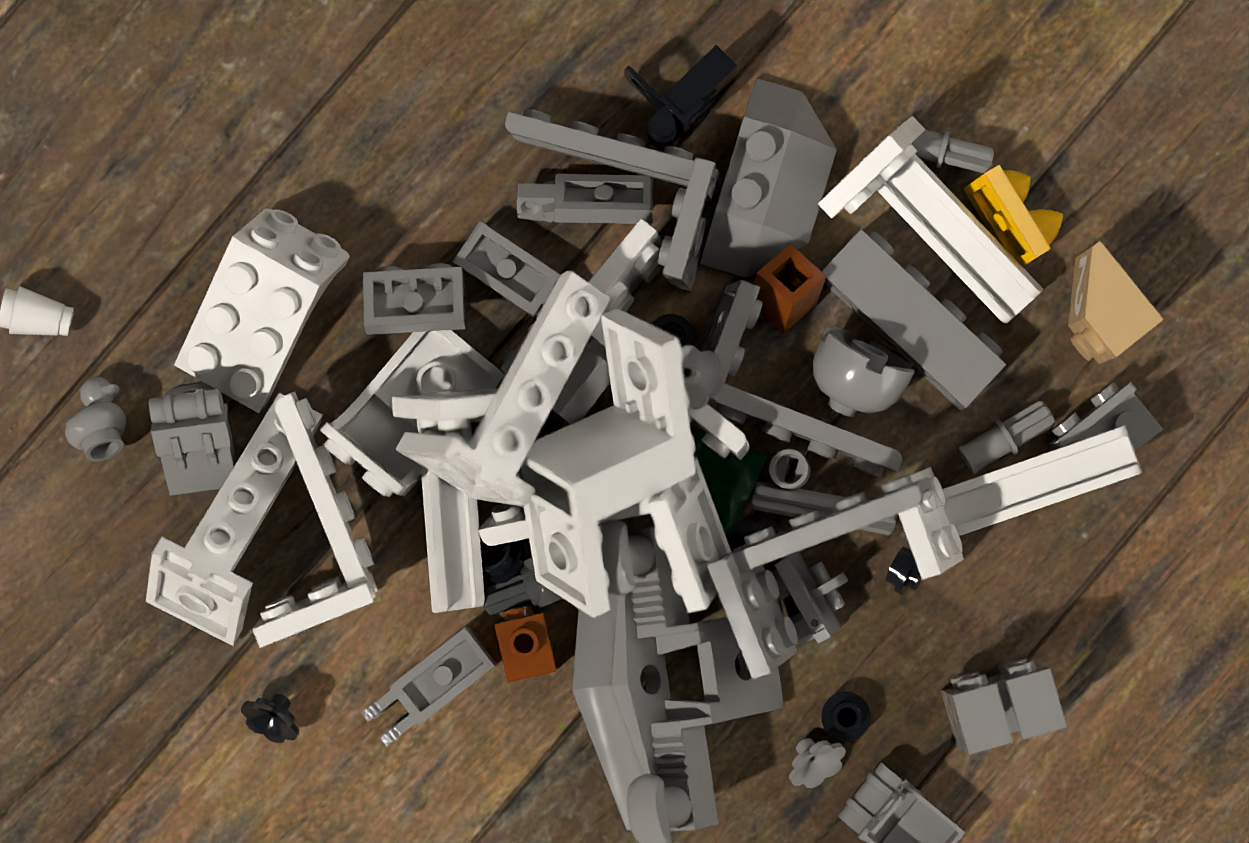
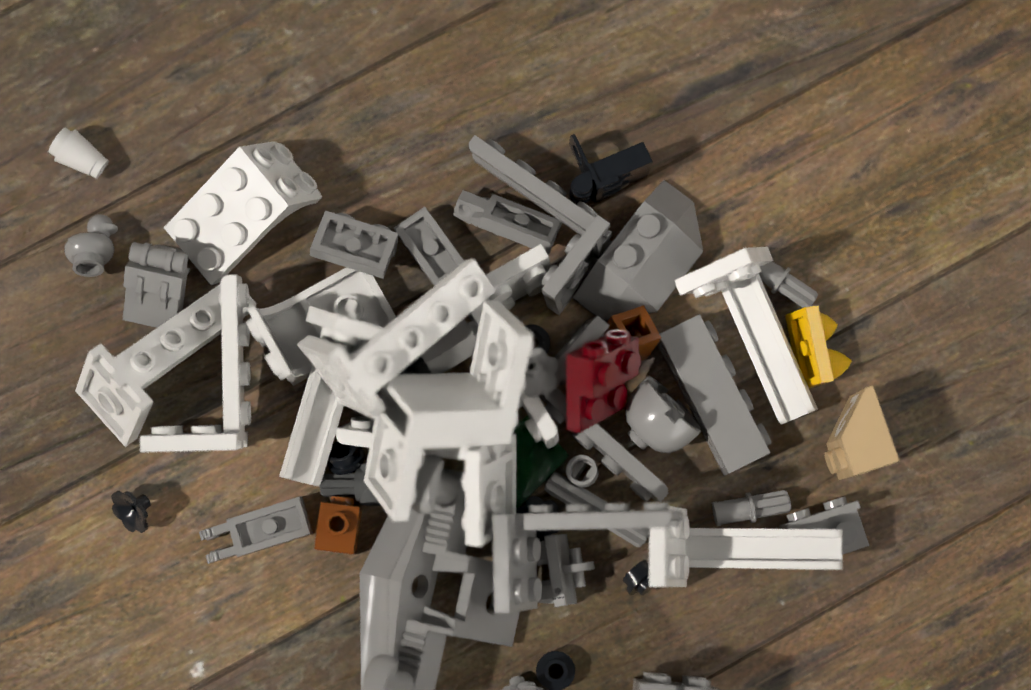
camera: 15 degrees right, 5 degrees down
(771, 354) = (598, 378): none -> dark red plate

